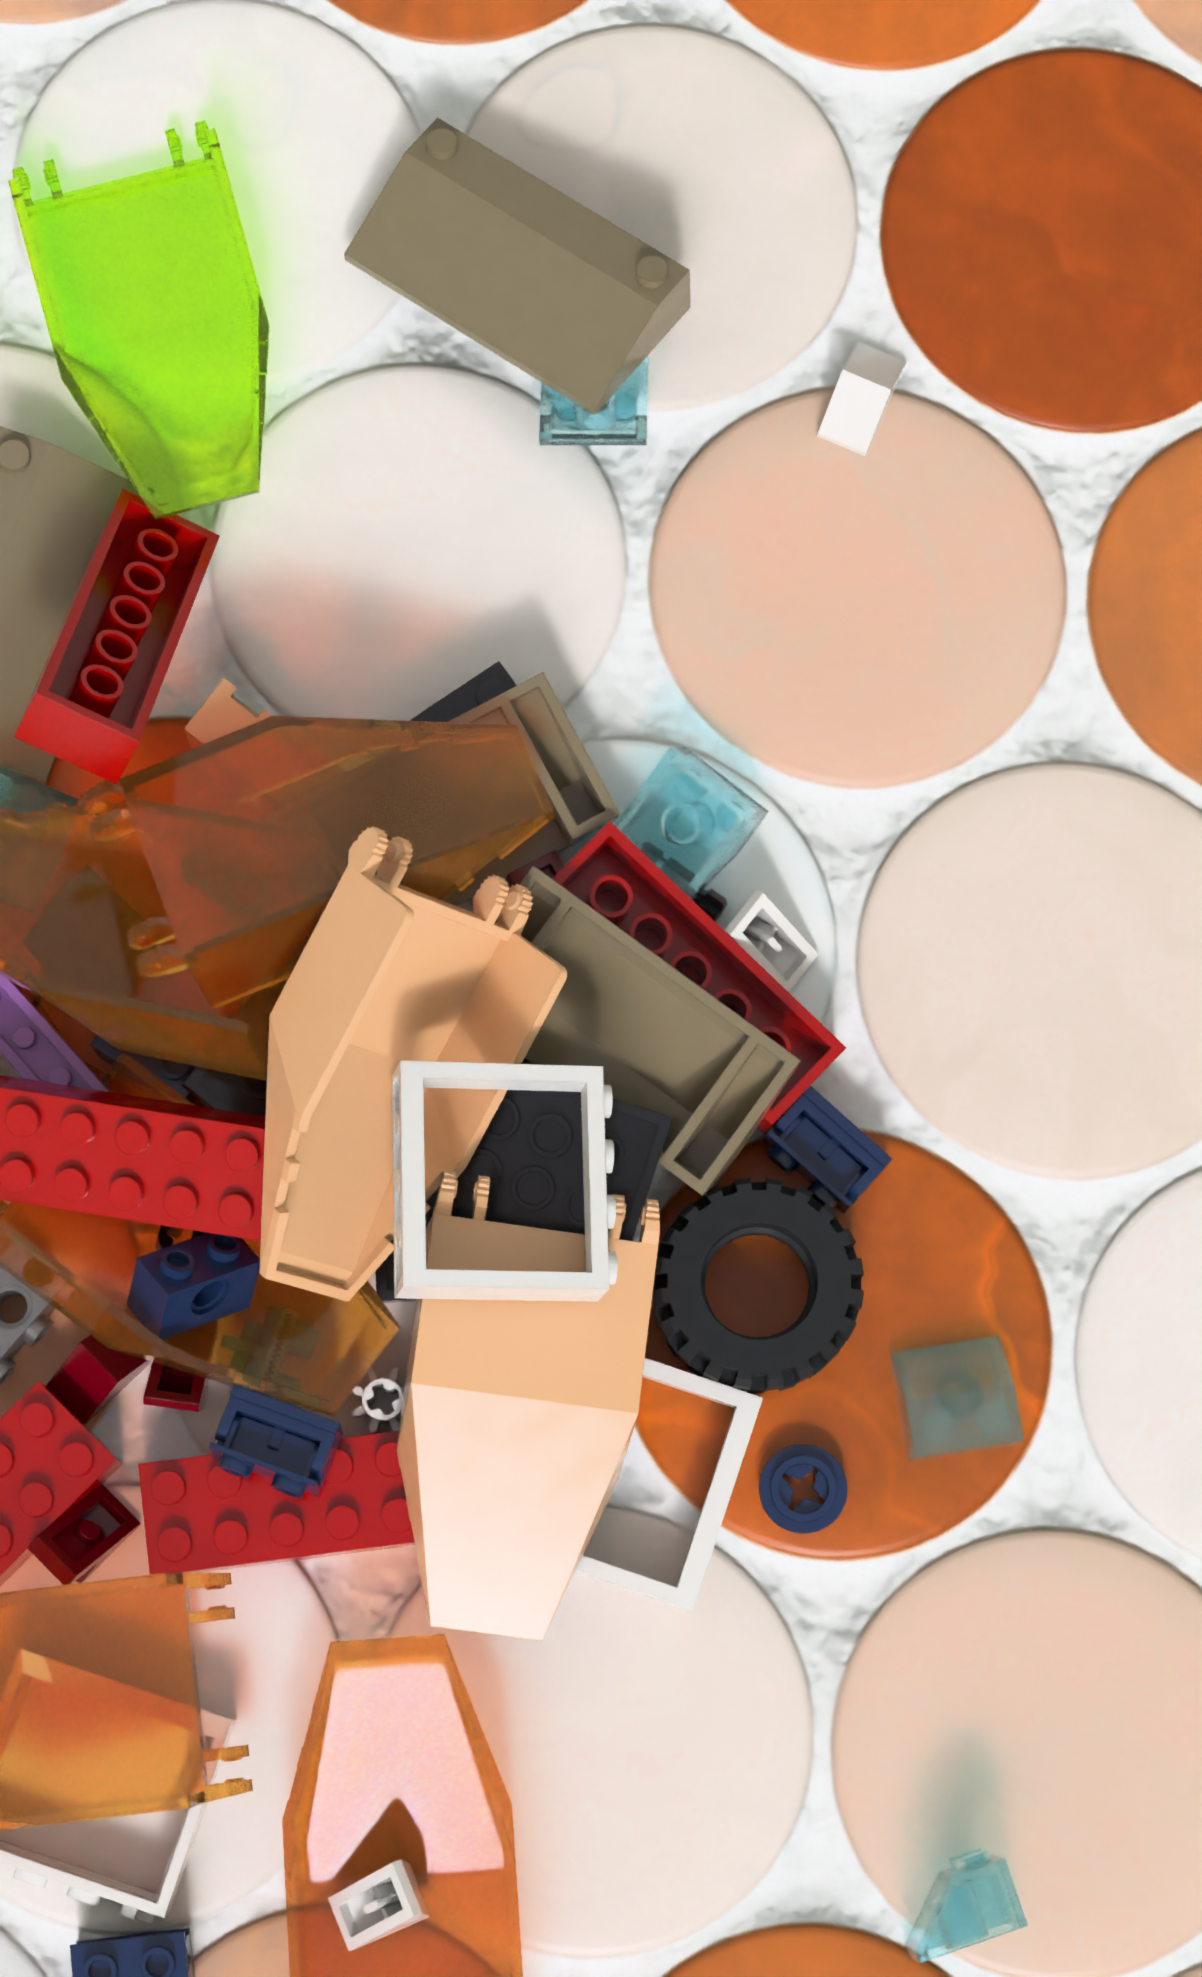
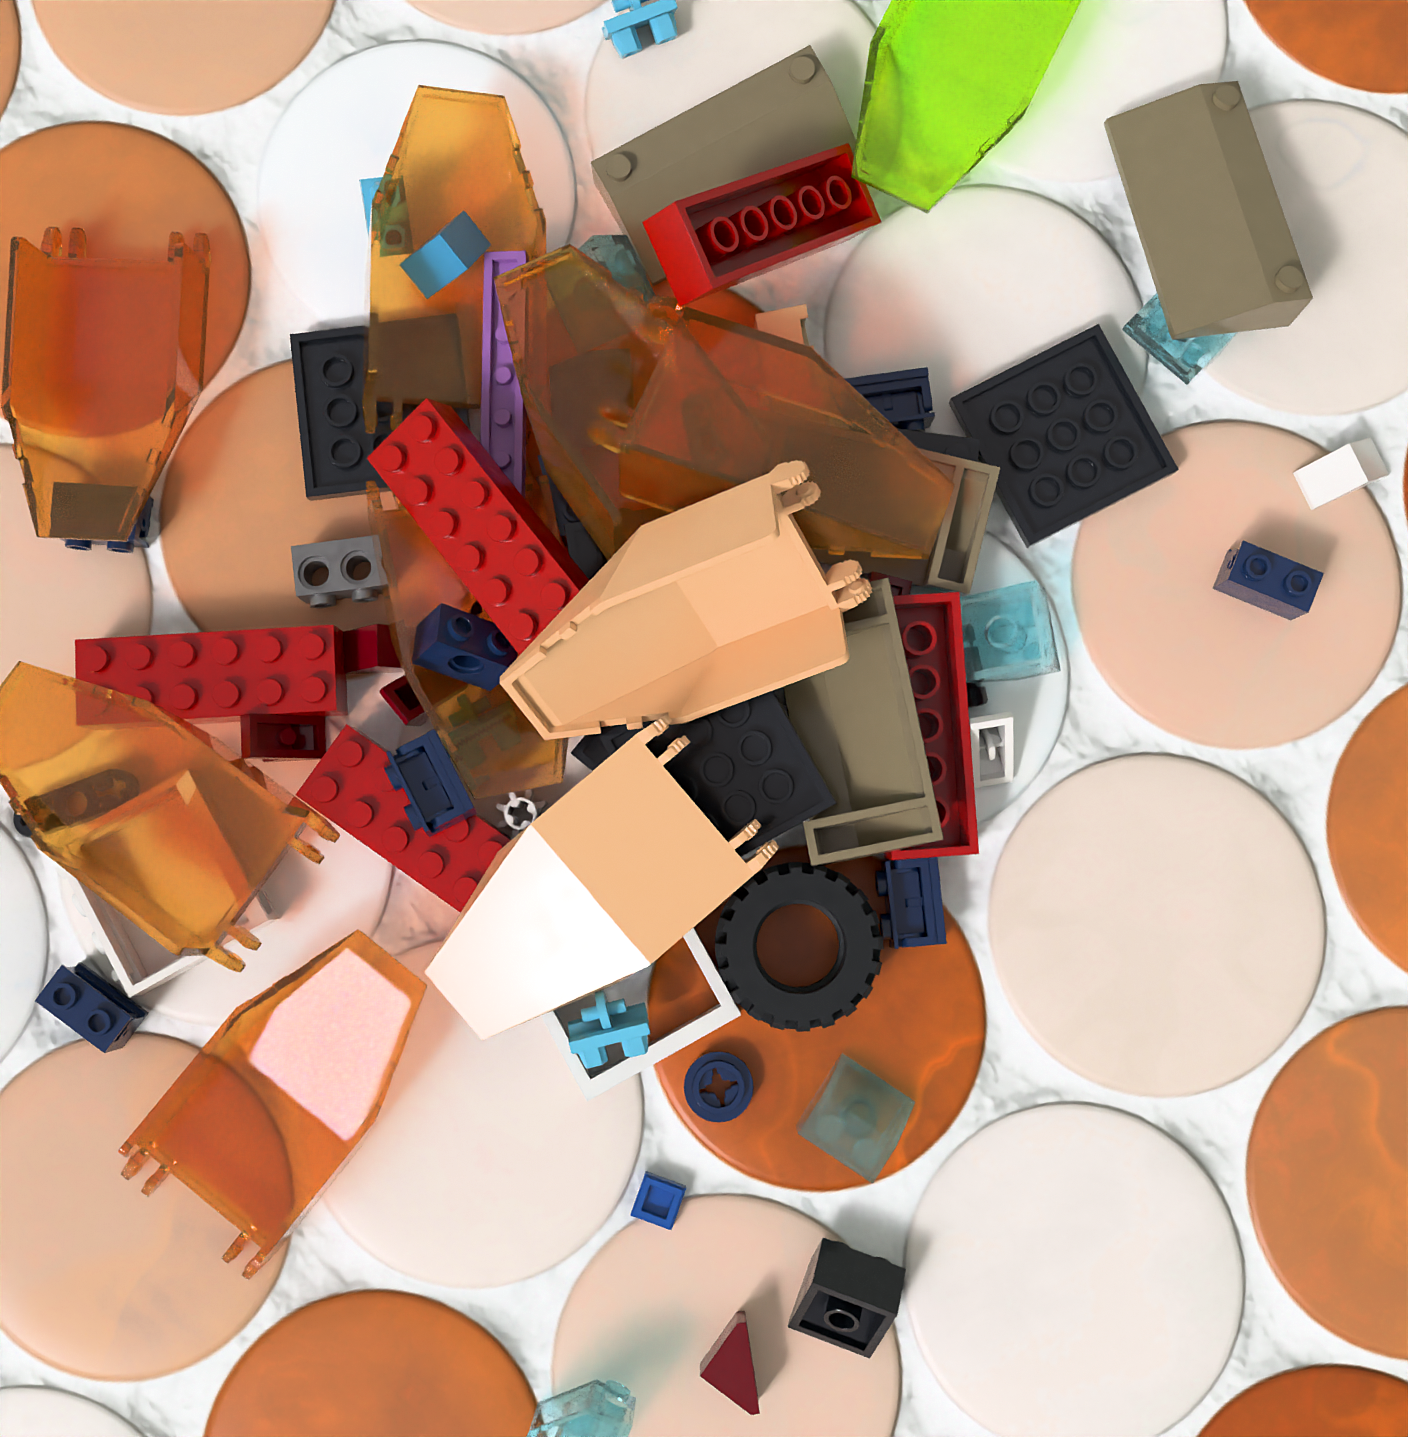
camera: 50 degrees right, 5 degrees up
(379, 1905) = (258, 1104): white slope -> none
(385, 688) = (899, 396): none -> dark blue hinge
(409, 1222) = (762, 791): white window -> none
(572, 587) = (1064, 435): none -> black plate
(647, 1516) = (607, 1025): none -> medium azure hips
(844, 1648) = (658, 1200): none -> blue tile
(883, 559) = (1268, 581): none -> dark blue hinge
(1049, 1732) = (730, 1365): none -> dark red slope
(1099, 1573) = (848, 1298): none -> black slope

